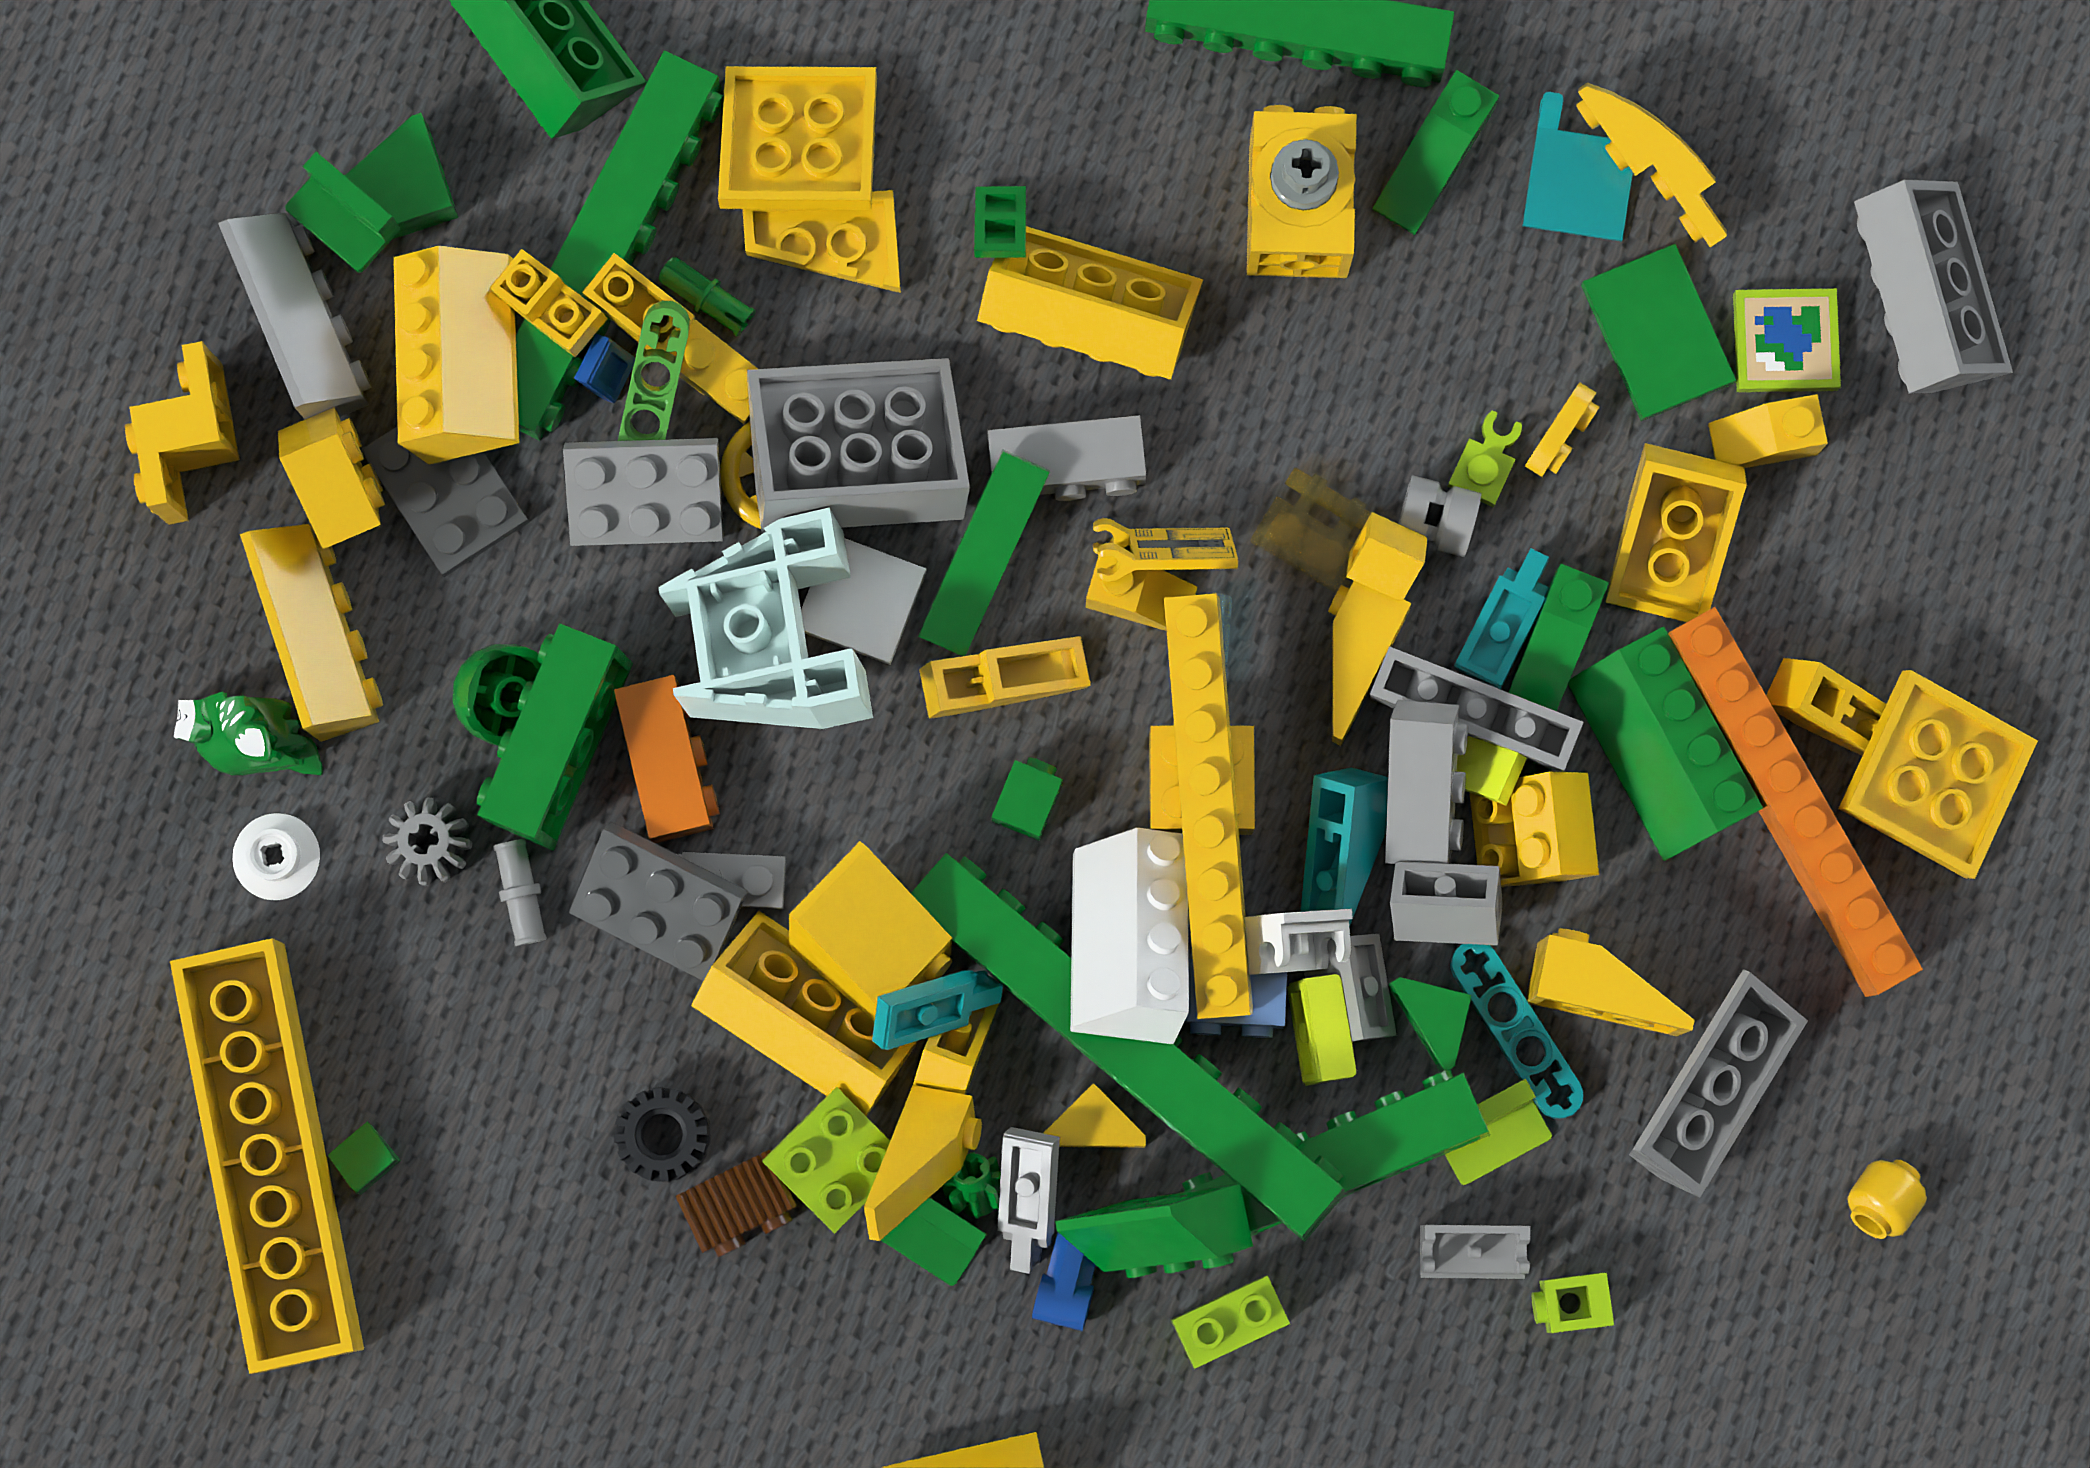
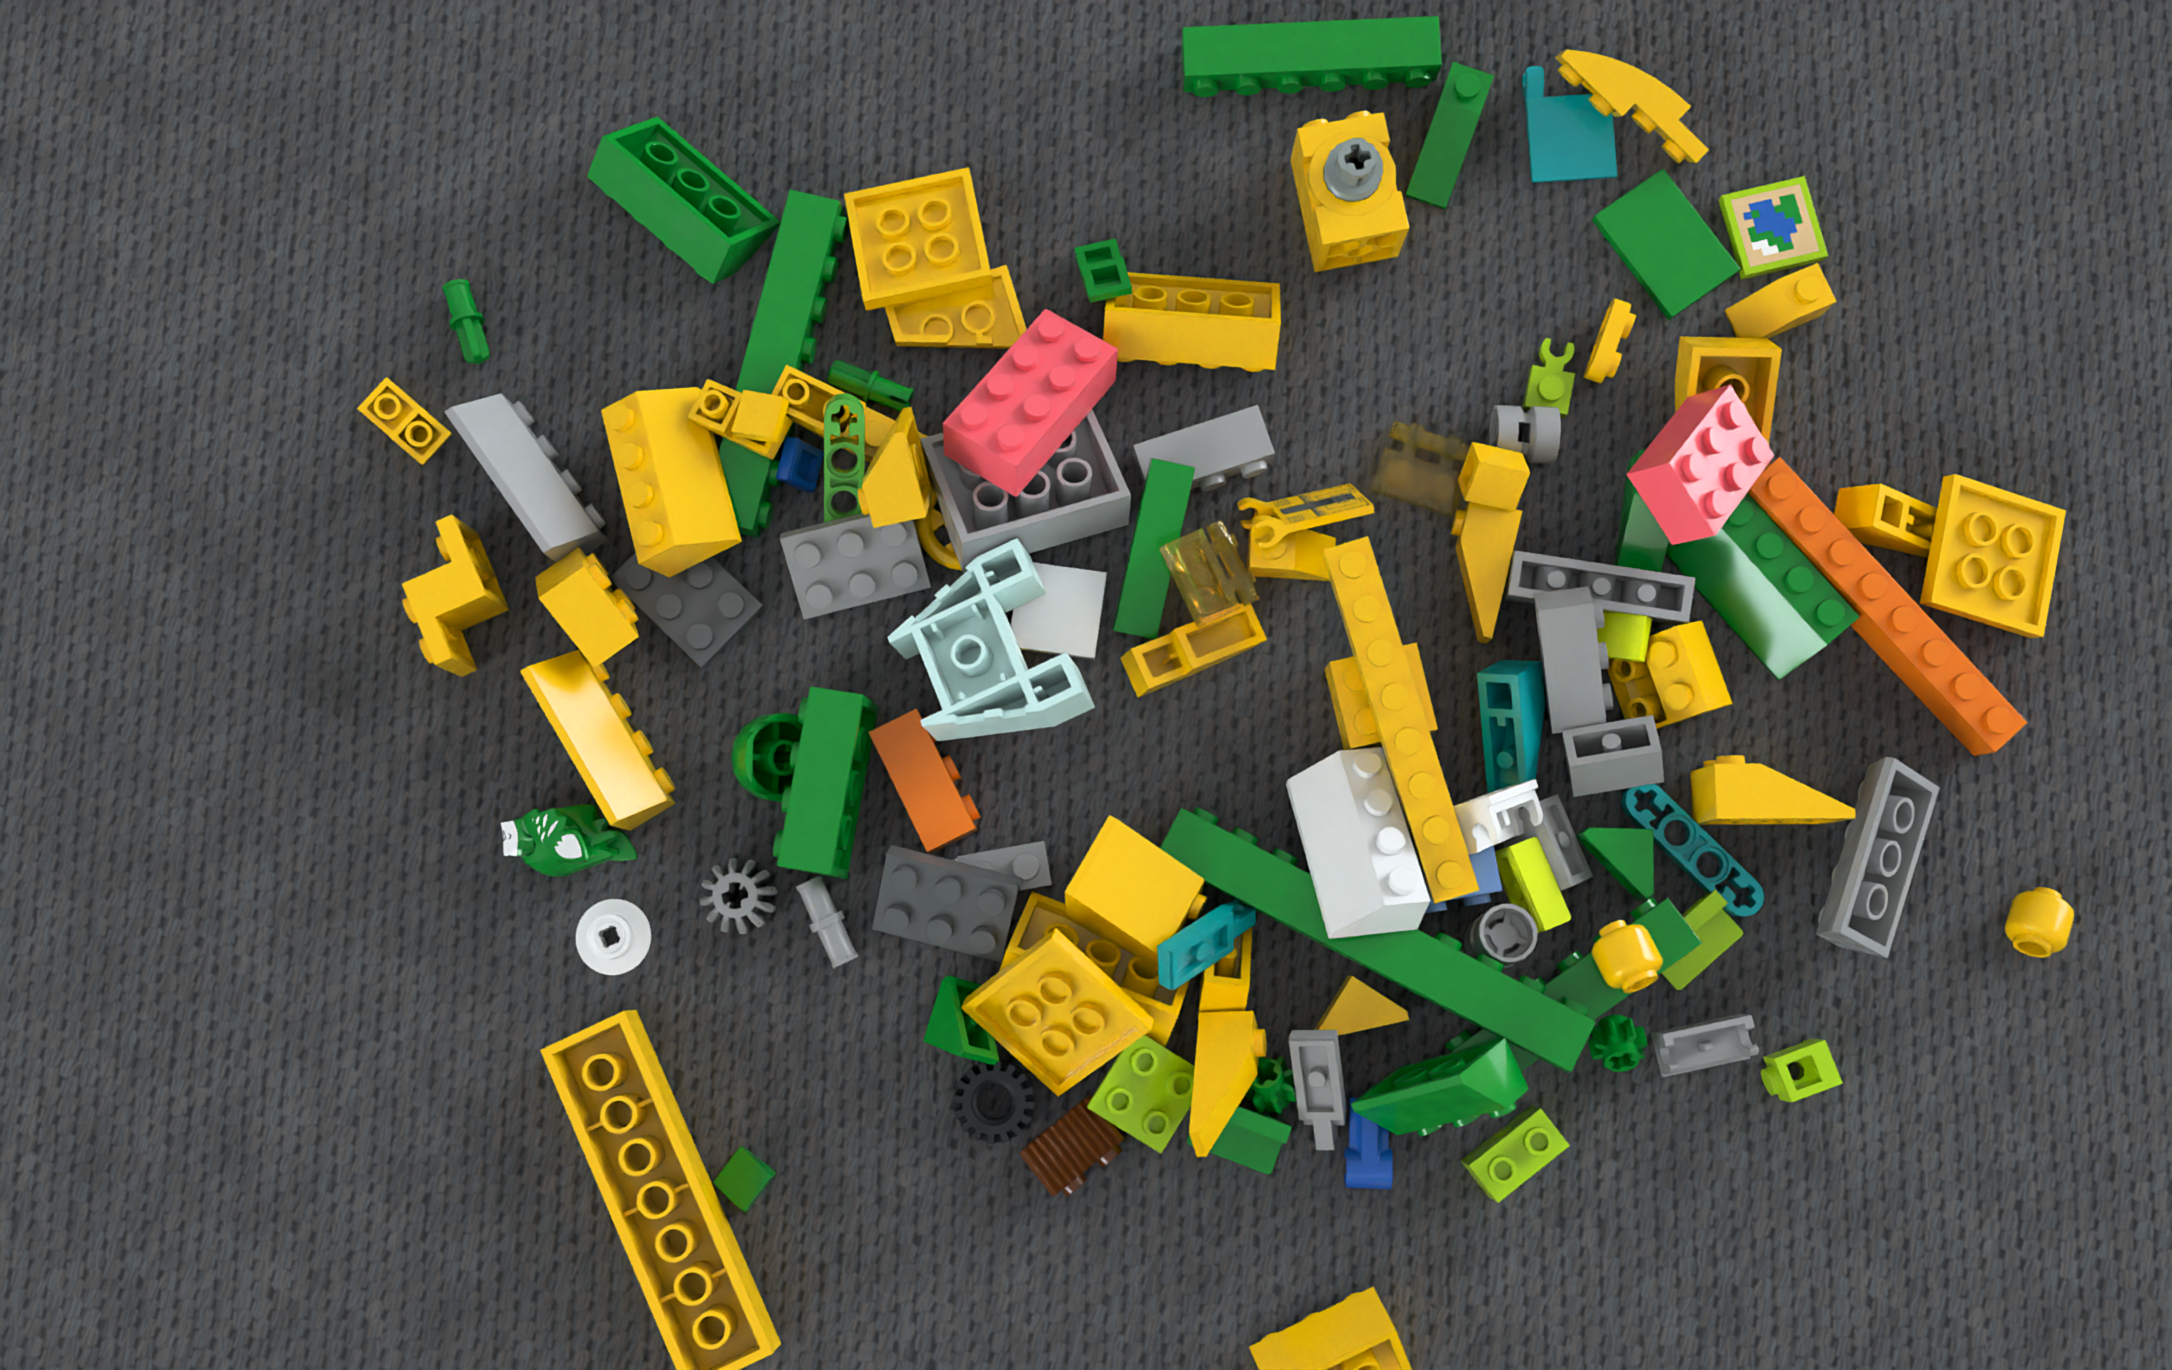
camera: 10 degrees left, 0 degrees up
(167, 218) = (404, 421): none -> yellow slope
(262, 119) = (466, 321): none -> green axle
(341, 214) = (549, 383): green panel -> none
(407, 178) = (585, 358): green slope -> none
(571, 306) = (760, 416): none -> yellow tile
(646, 1036) = (954, 1029): none -> green slope
(711, 409) = (898, 478): none -> yellow slope
(753, 1049) = (1057, 1012): none -> yellow plate
(881, 356) = (1030, 402): none -> coral brick
(1028, 598) = (1201, 576): none -> clear yellow plate
(1028, 798) = (1238, 745): green brick -> none
(1273, 1076) = (1503, 934): none -> light grey wheel
(1376, 1226) = (1617, 1043): none -> green gear
(1398, 1125) = (1627, 956): none -> yellow head
(1504, 622) = (1600, 509): teal hinge -> none
(1620, 596) = (1701, 465): none -> coral brick
(1932, 285) = (1881, 156): light grey slope -> none

